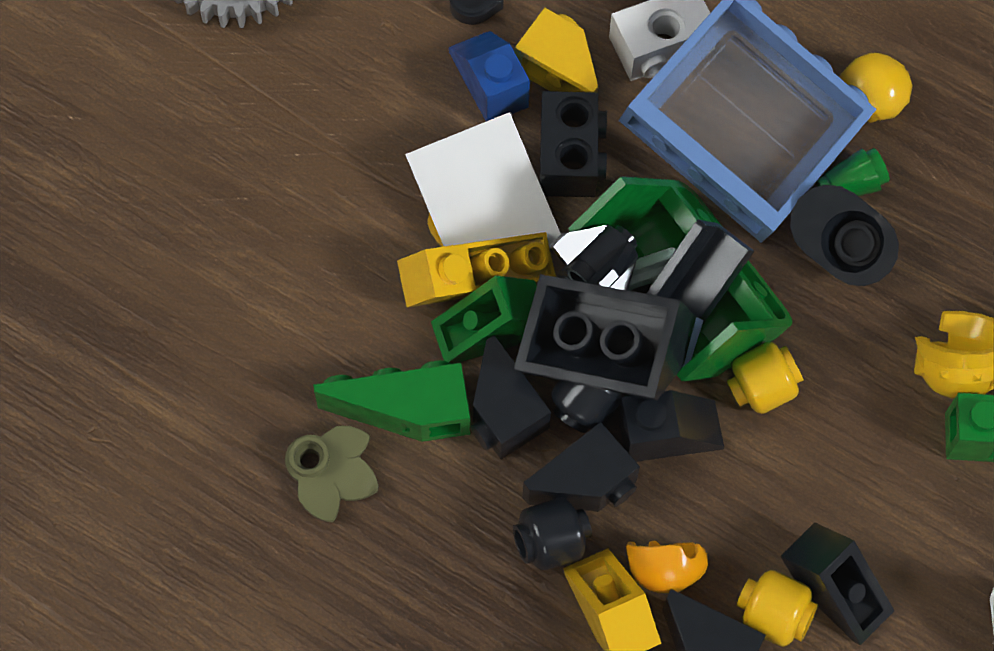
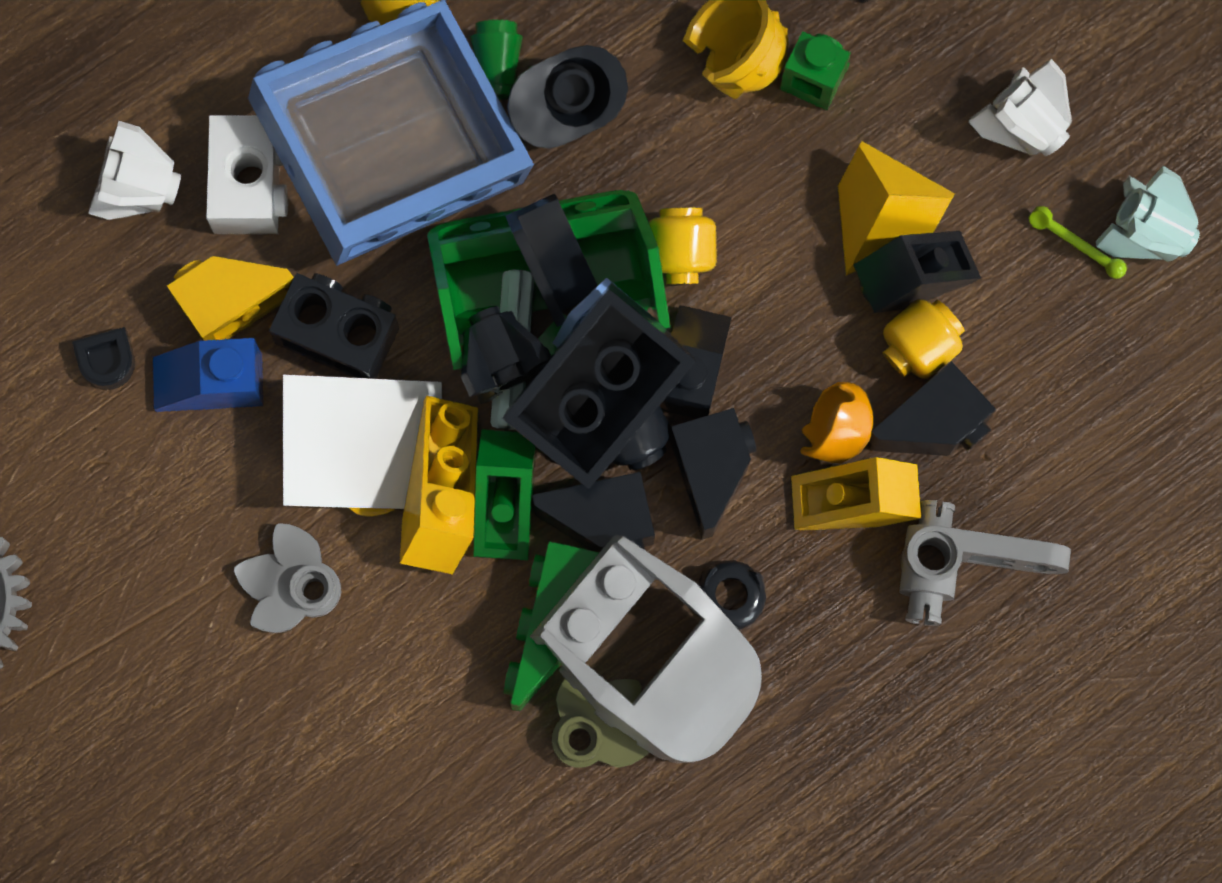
camera: 70 degrees left, 10 degrees up
(352, 188) = (281, 578): none -> light grey plate
(384, 534) = (697, 693): none -> light grey slope
(486, 557) = (750, 578): none -> black piece
(552, 534) = (762, 524): black head -> none
(889, 534) = (885, 201): none -> yellow slope

